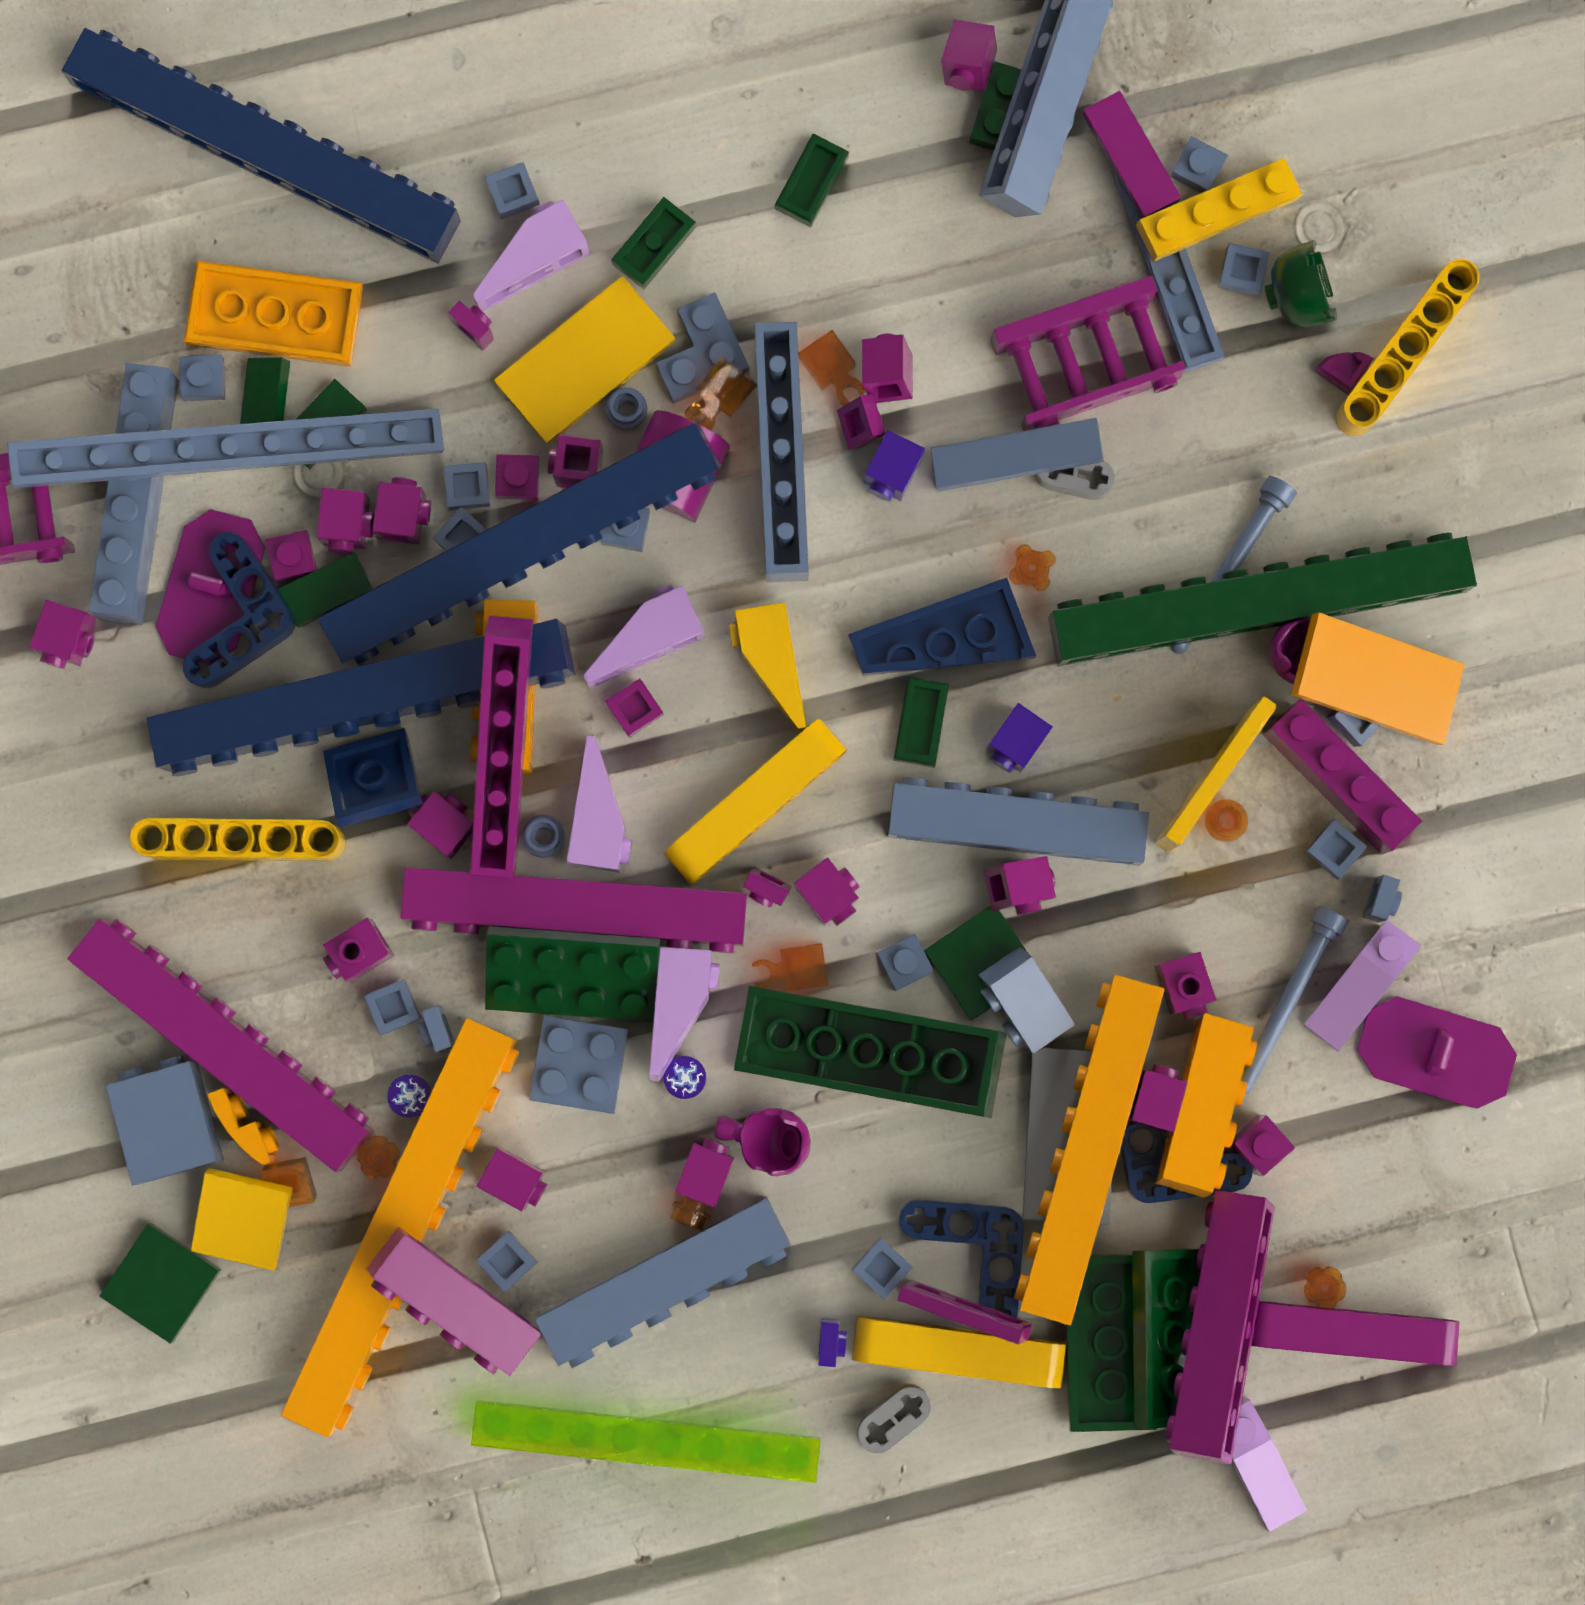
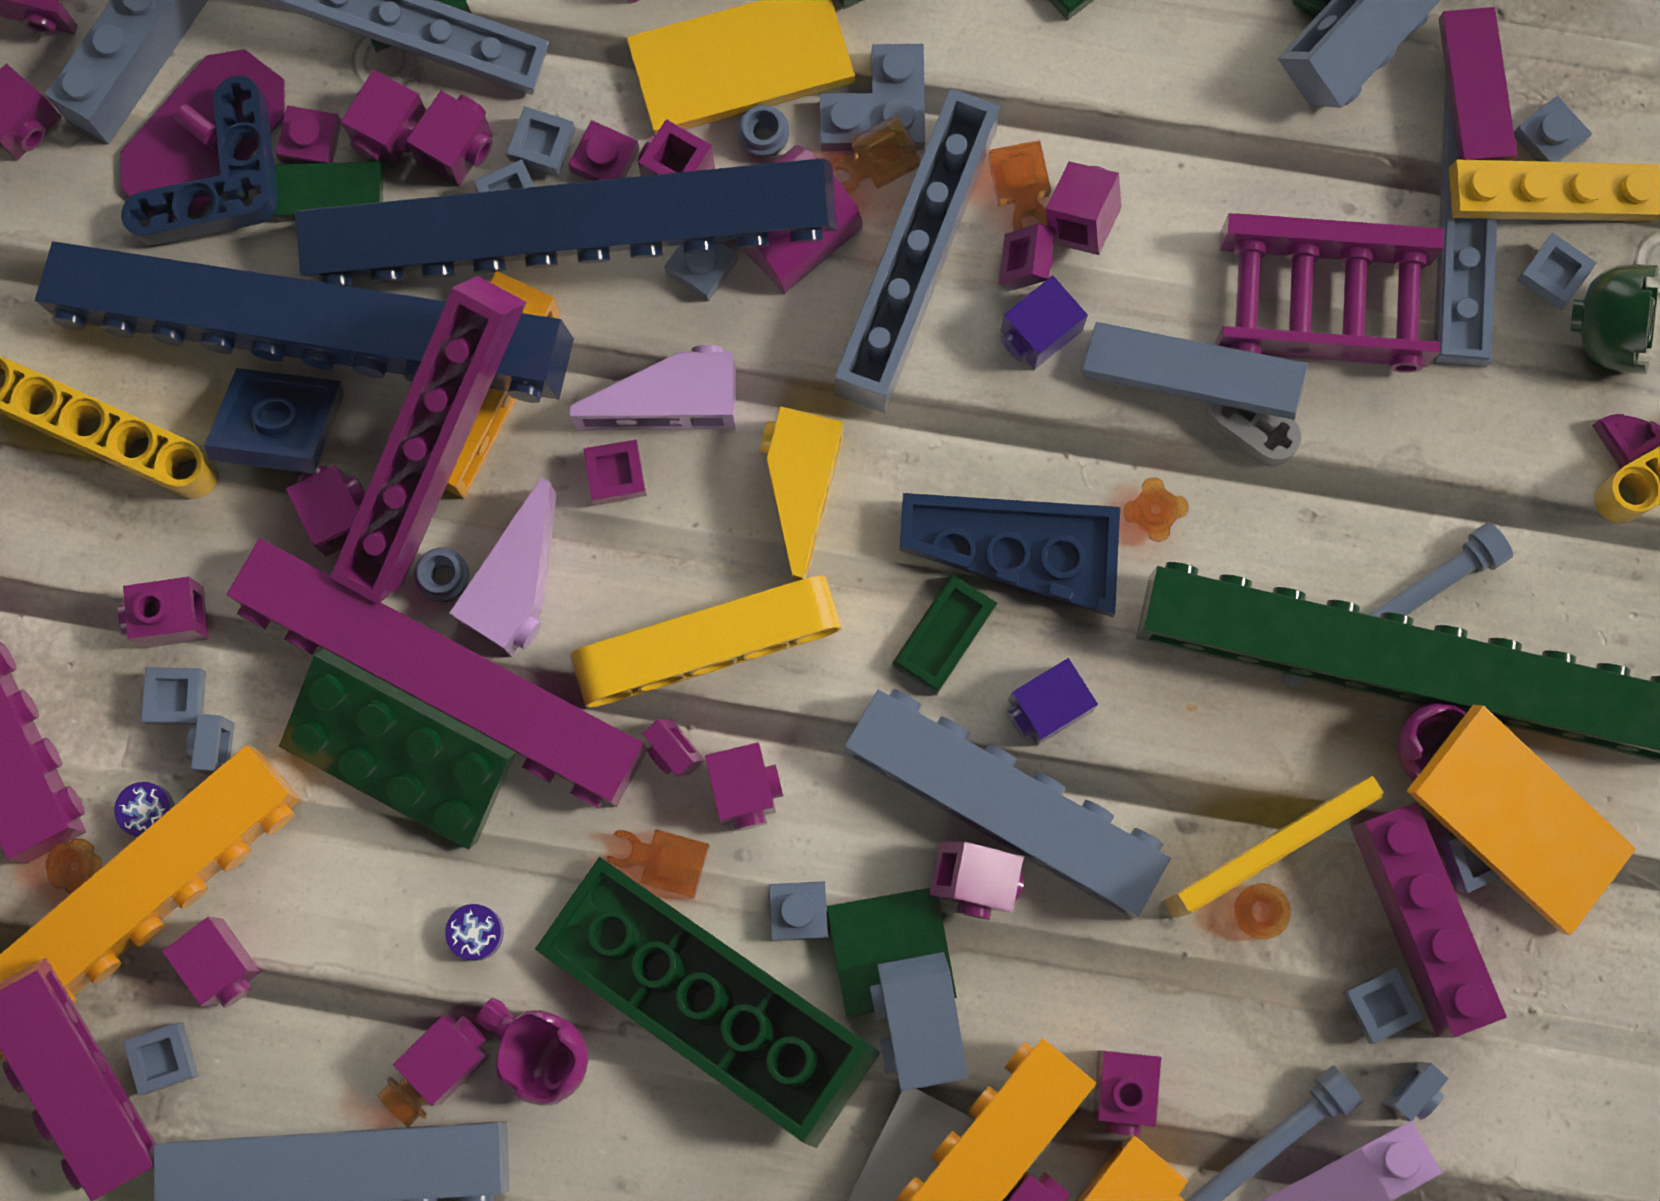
camera: 30 degrees right, 5 degrees down
(578, 1064) = (357, 861): sand blue plate -> none
(680, 998) = (506, 837): lavender slope -> none

